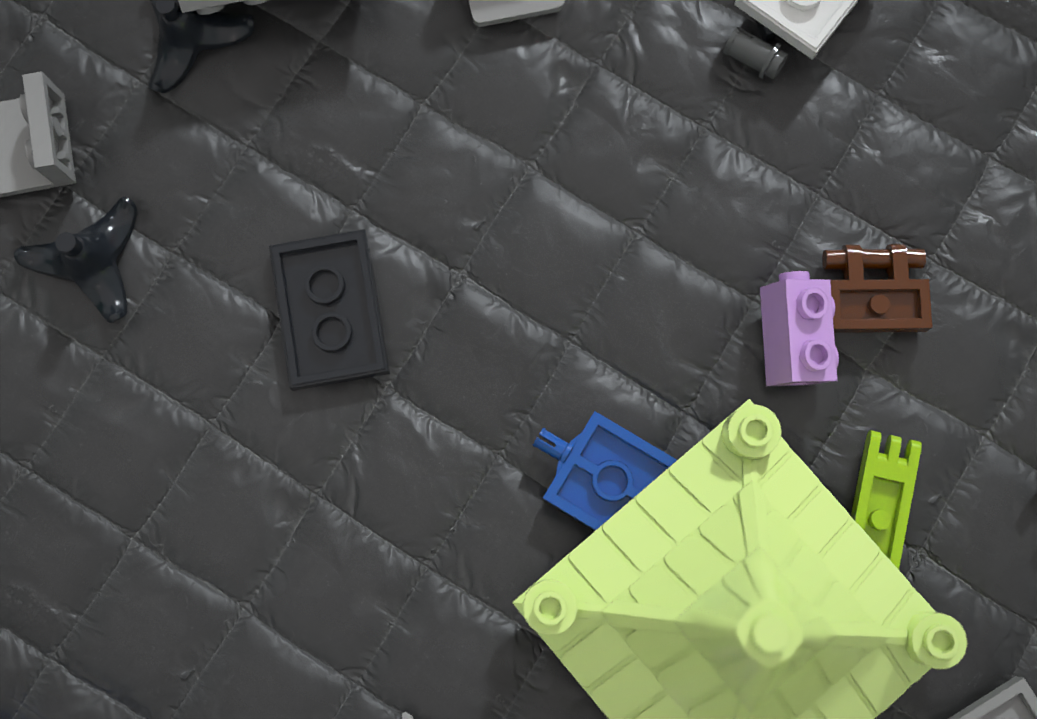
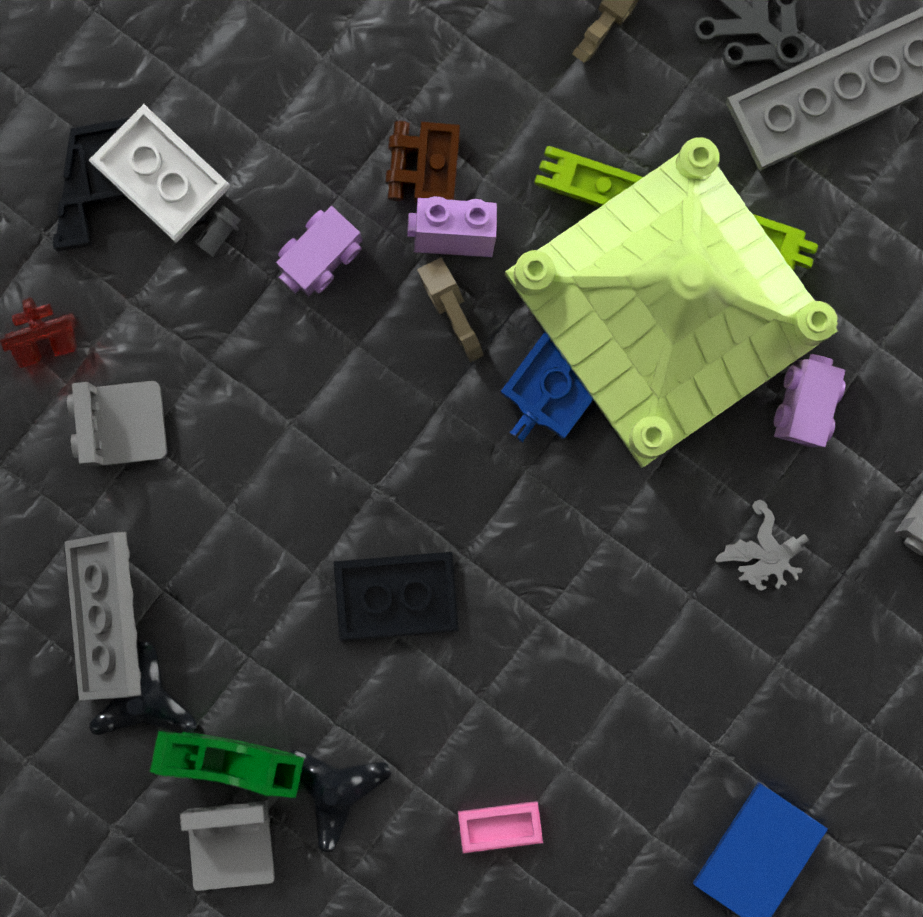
camera: 90 degrees left, 5 degrees up
(52, 463) = (500, 827): none -> bright pink tile
(116, 138) = (228, 762): none -> green arch
(706, 330) = (447, 297): none -> dark tan piece
(744, 169) = (318, 252): none -> lavender brick

